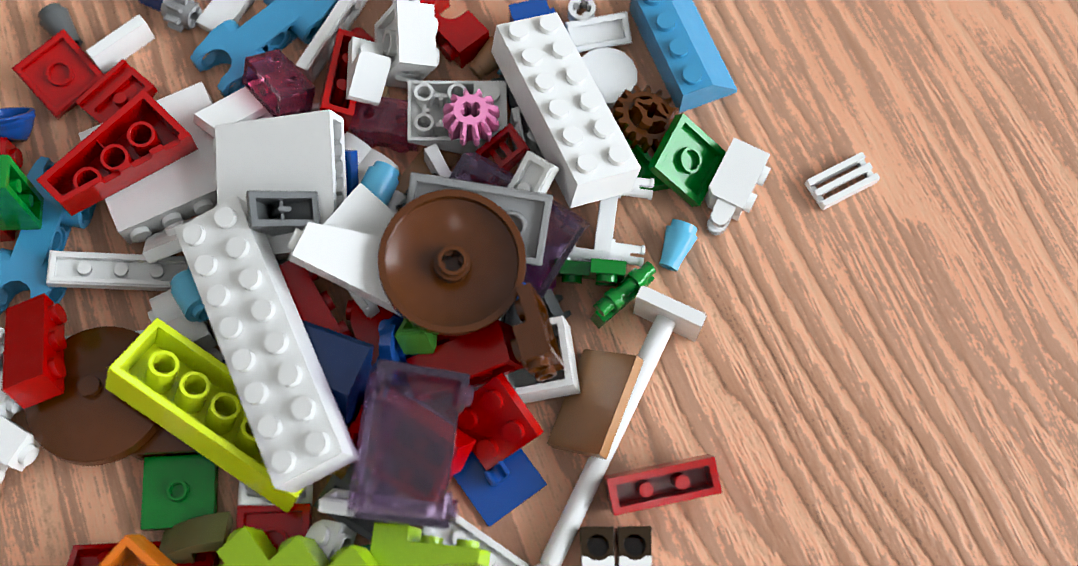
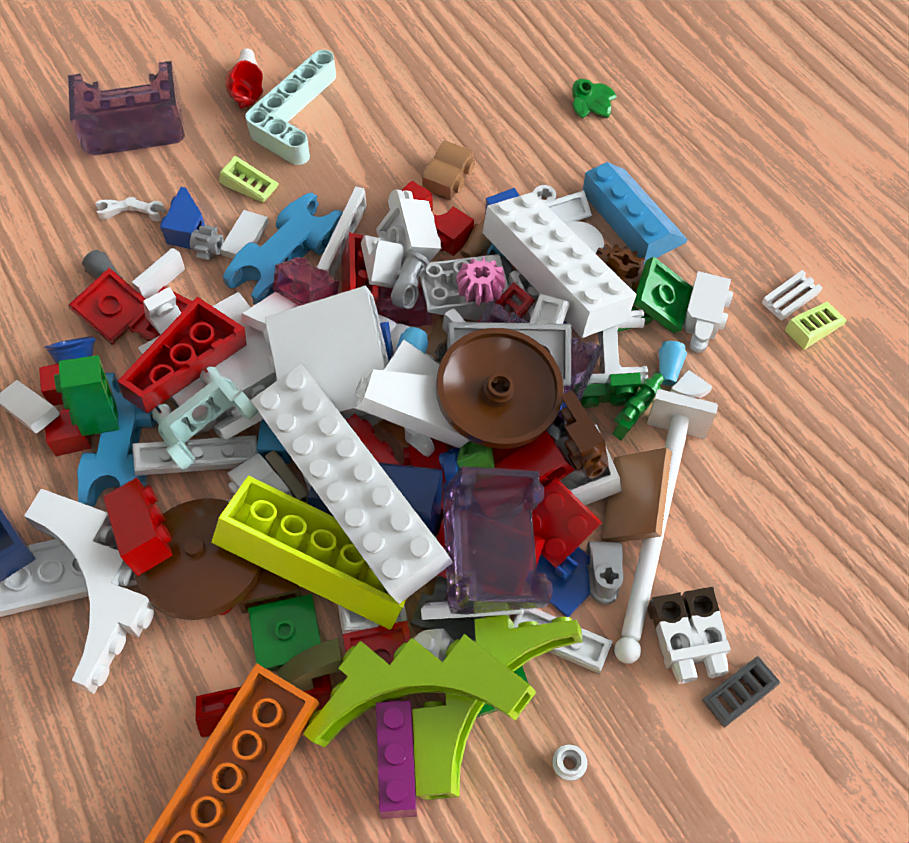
camera: 10 degrees left, 10 degrees down
(102, 238) = (180, 426): none -> light aqua connector
(108, 93) = (161, 309): none -> white slope
(188, 297) = (271, 459): medium azure brick -> none
(281, 210) = (341, 372): dark grey slope -> none
(389, 102) = (408, 280): none -> light grey connector
(540, 478) = (605, 570): none -> light grey piece
(662, 484) = (712, 551): red brick -> none
(693, 277) = (691, 386): none -> white tile
(840, 236) = (805, 338): none -> yellowish green slope

